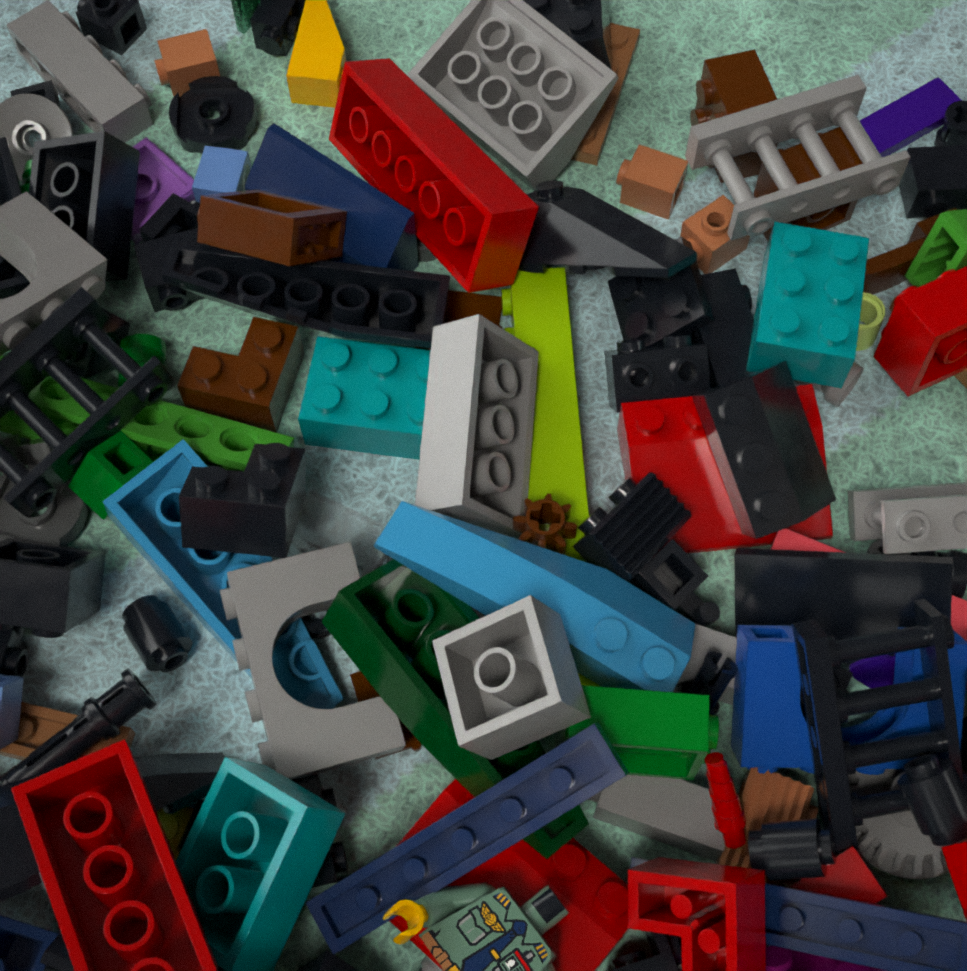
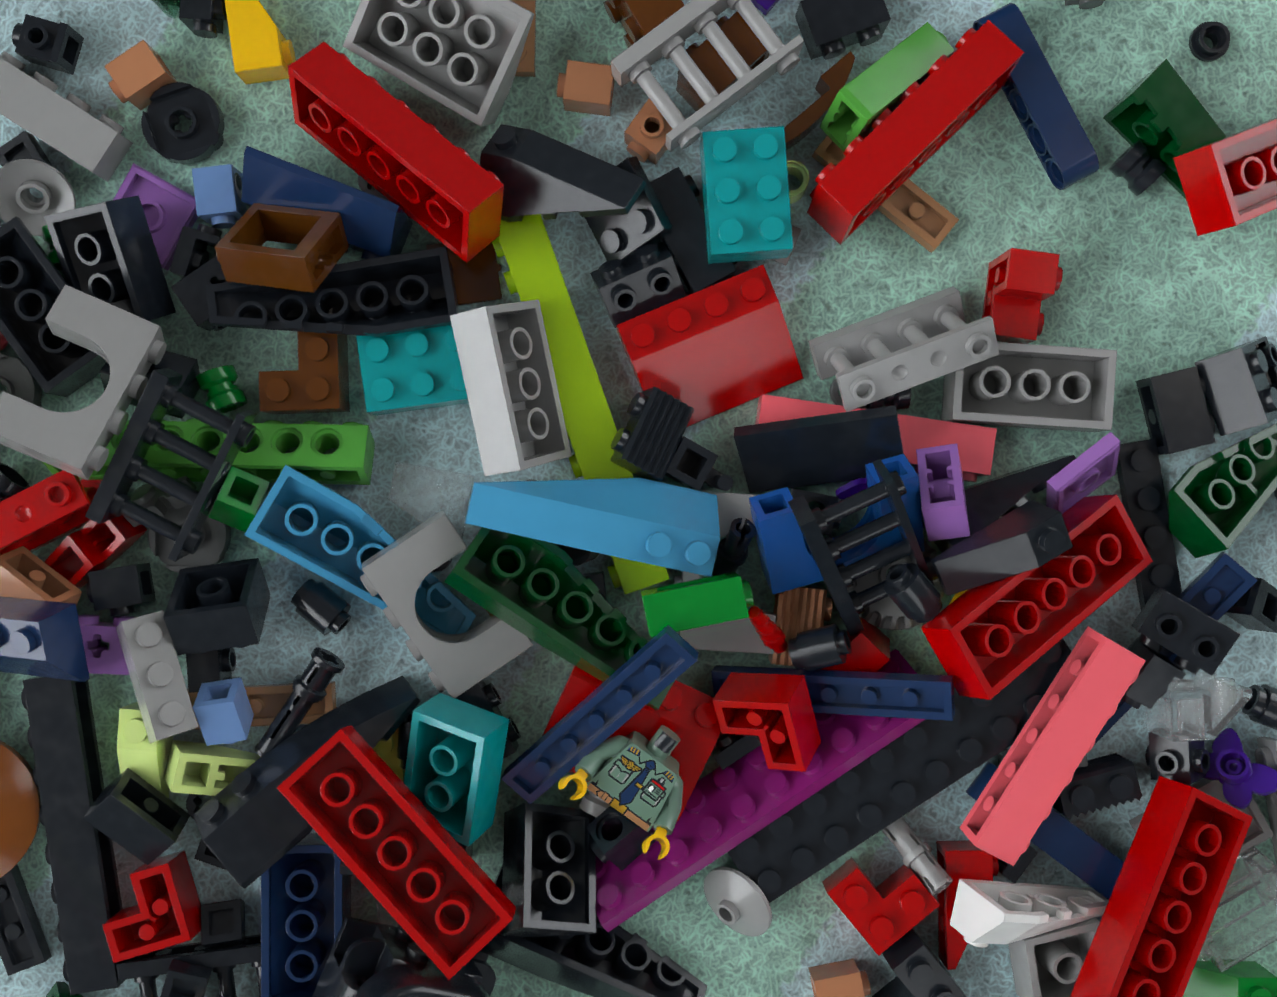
camera: 15 degrees left, 25 degrees up
(247, 509) = (361, 515): black brick -> none
(510, 679) = (597, 608): light grey brick -> none
(545, 512) = (576, 447): reddish brown gear -> none
(764, 450) = (739, 338): black slope -> none

